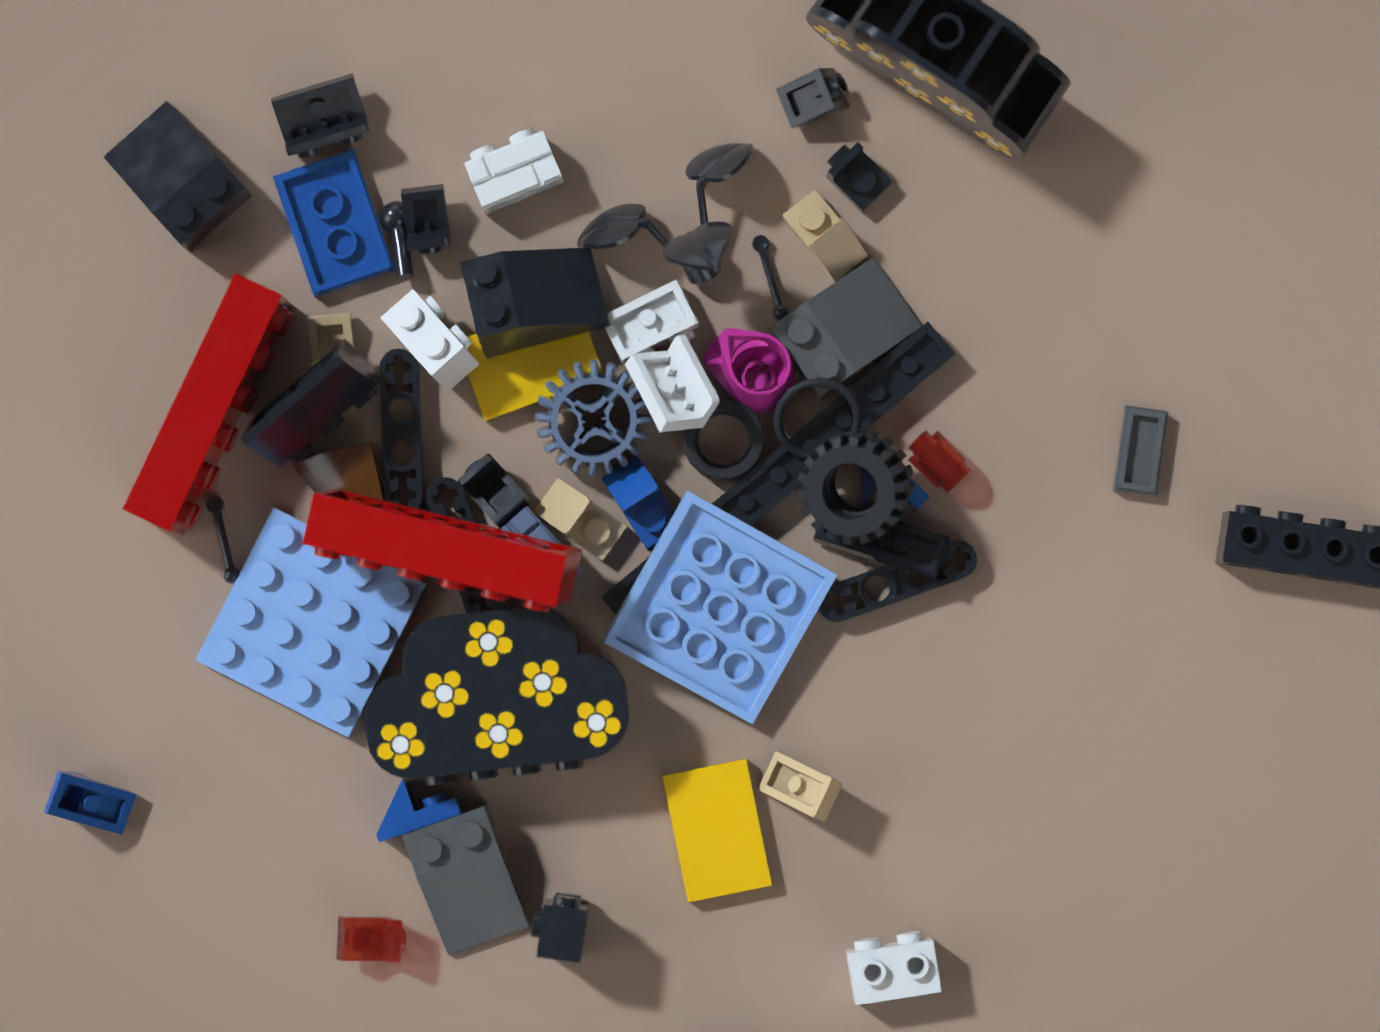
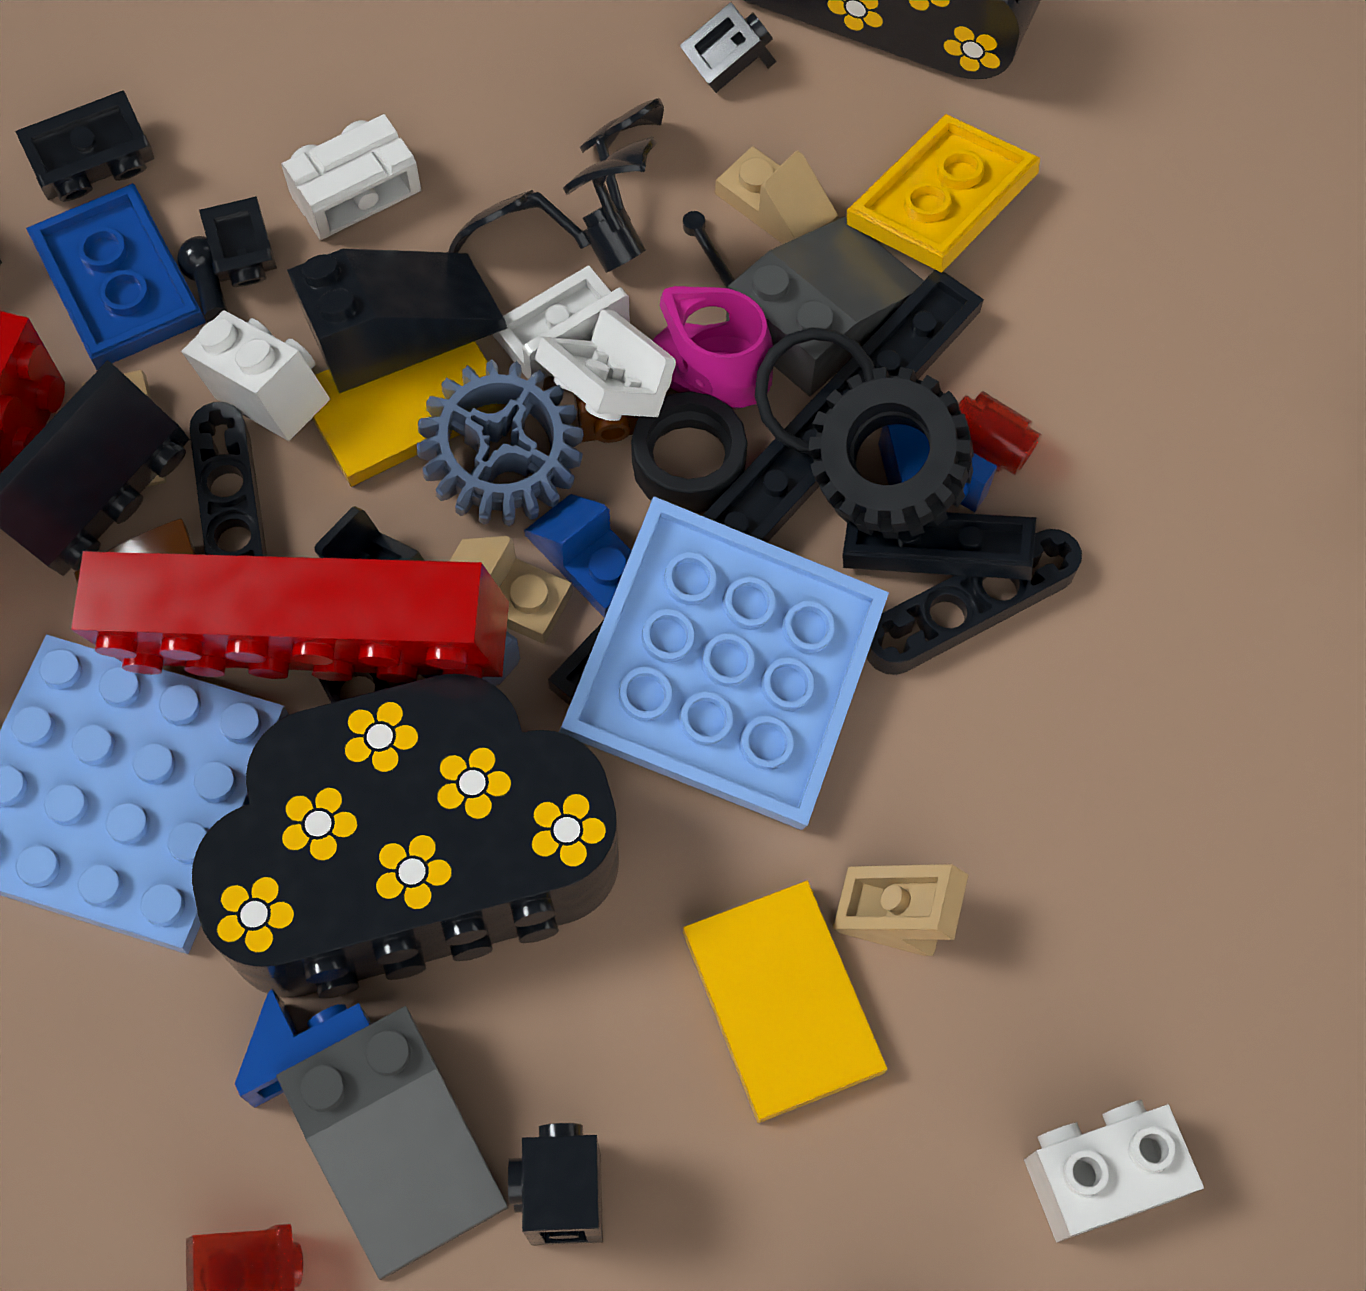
camera: 10 degrees left, 20 degrees down
(857, 176) = (801, 125): black bracket -> none
(948, 254) = (943, 192): none -> yellow tile
(1140, 450) = (1261, 390): dark grey tile -> none

